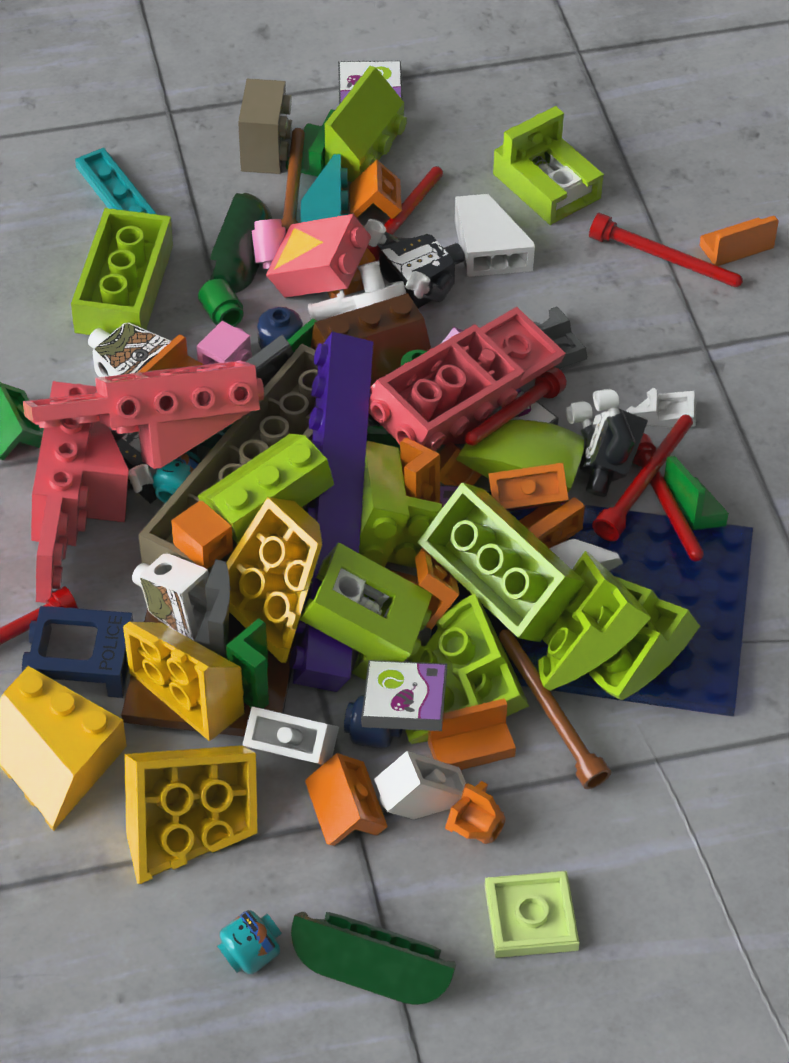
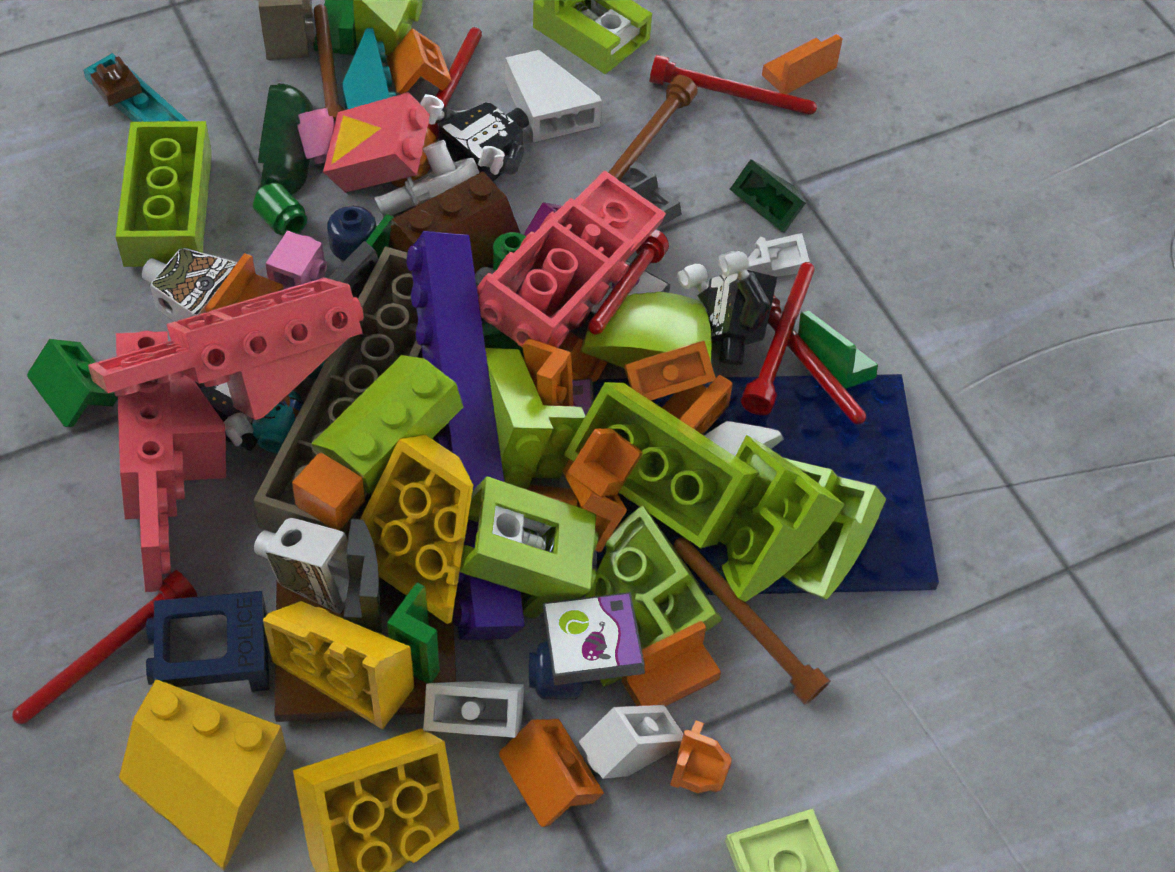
camera: 15 degrees left, 5 degrees up
(100, 173) = (115, 82): none -> reddish brown tile
(448, 550) = (605, 462): none -> orange panel
(613, 251) = (679, 94): none -> dark orange piece
(673, 352) = (768, 195): none -> dark green slope

